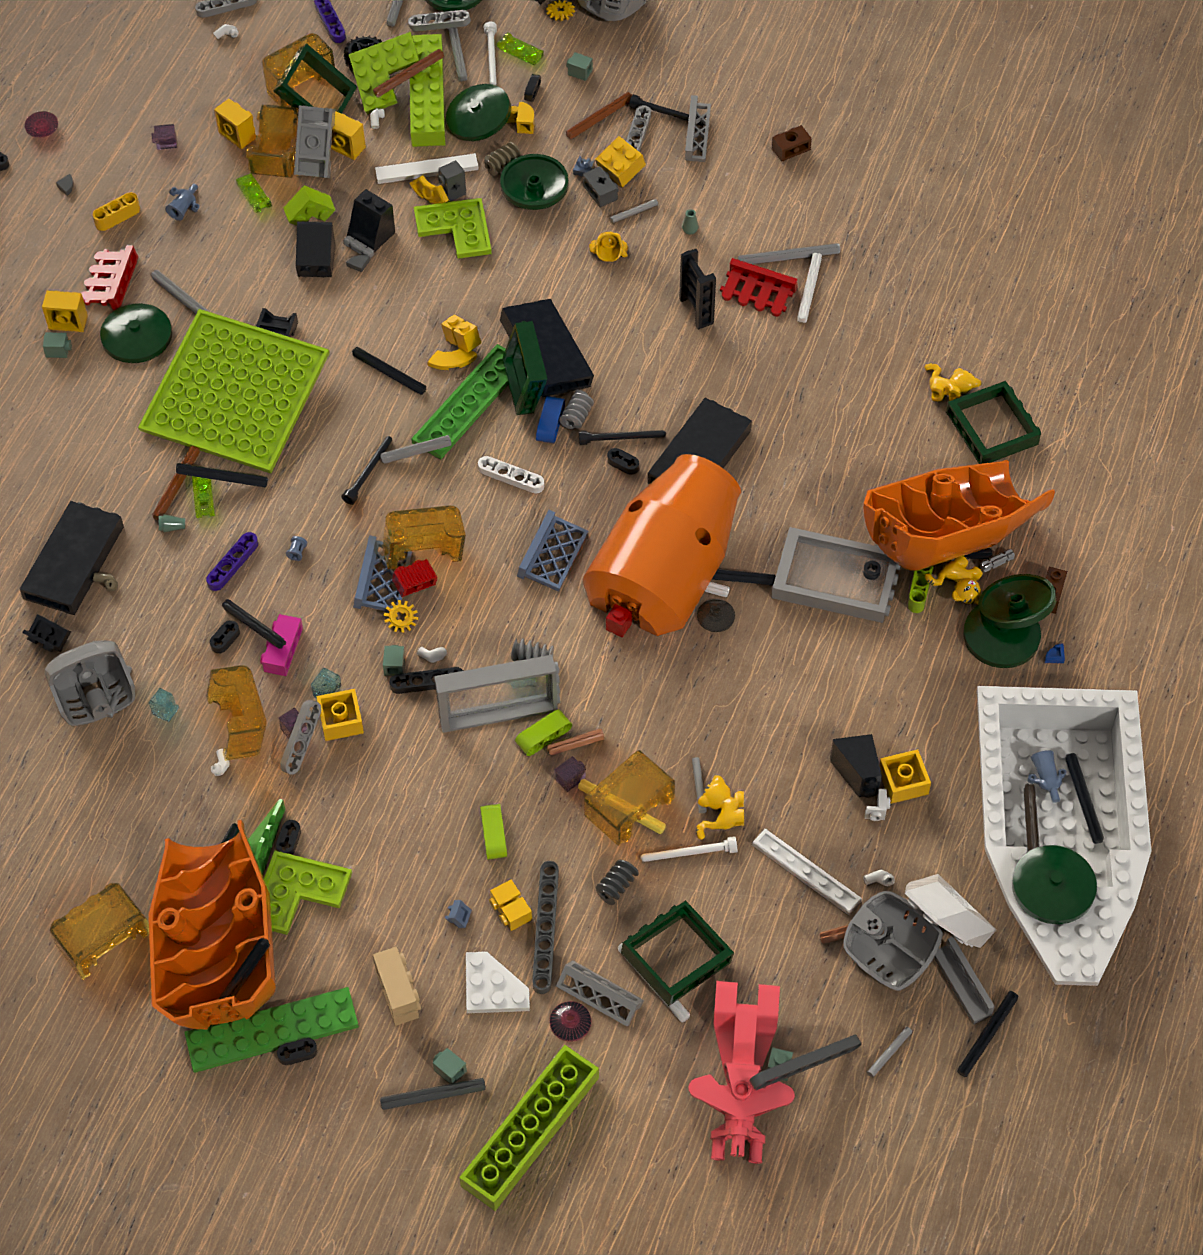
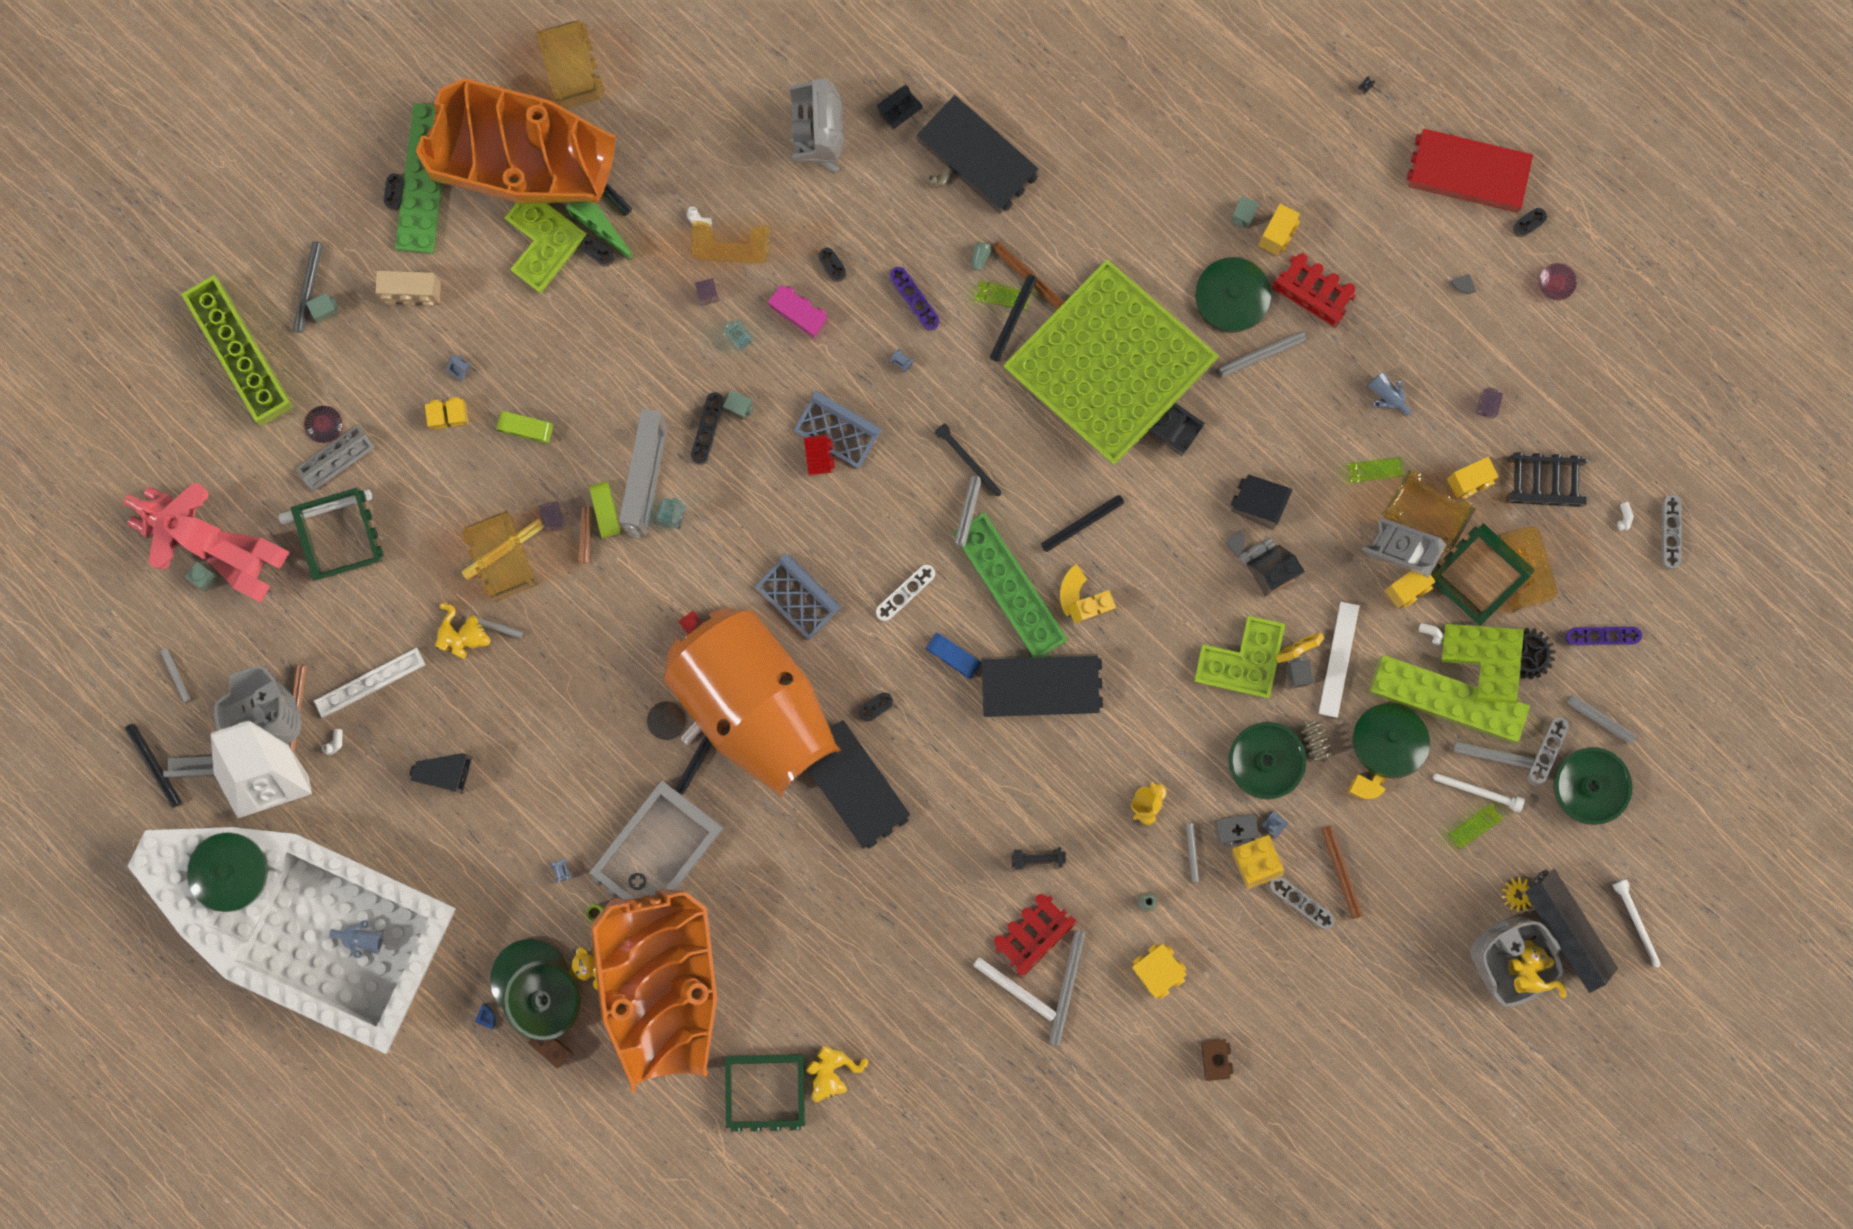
camera: 110 degrees right, 25 degrees up
(116, 211) = (1403, 313): yellow beam -> none
(163, 705) = (777, 186): clear light blue brick -> none
(228, 74) = (1537, 496): none -> black fence
(246, 968) = (453, 154): black axle -> none
(254, 624) = (827, 291): black axle -> none
(303, 738) = (698, 301): light grey beam -> none
(308, 204) = (1324, 515): lime brick -> none
(340, 714) = (697, 335): yellow brick -> none
(402, 609) = (779, 425): yellow gear -> none
(408, 73) = (1466, 681): dark orange axle -> none
(423, 530) = (864, 455): clear yellow windscreen -> none
(433, 655) = (730, 443): white arm -> none
(492, 986) = (381, 372): white plate -> none
(524, 390) = (1001, 642): dark green window -> none
(527, 651) = (690, 531): light grey piece -> none
(532, 87) = (1408, 815): black beam -> none
(541, 935) = (423, 444): dark grey beam -> none
(576, 410) = (951, 685): light grey piece -> none
(580, 66) = (1420, 878): sand green brick -> none
(585, 437) = (917, 682): black piece -> none
(615, 880) = (427, 512): dark grey piece -> none
(636, 102) = (1342, 921): black piece -> none
(694, 105) = (1272, 957): light grey fence -> none
(728, 845) = (422, 624): white piece -> none
(741, 197) = (1159, 970): none -> yellow brick
(805, 1062) = (179, 590): dark grey beam -> none
(883, 803) = (400, 779): white bracket -> none
(895, 642) = (561, 871): none -> sand blue bush
(904, 776) = (415, 809): yellow brick -> none
(1031, 817) = (314, 895): dark brown axle -> none
(1084, 798) = (325, 961): black axle -> none

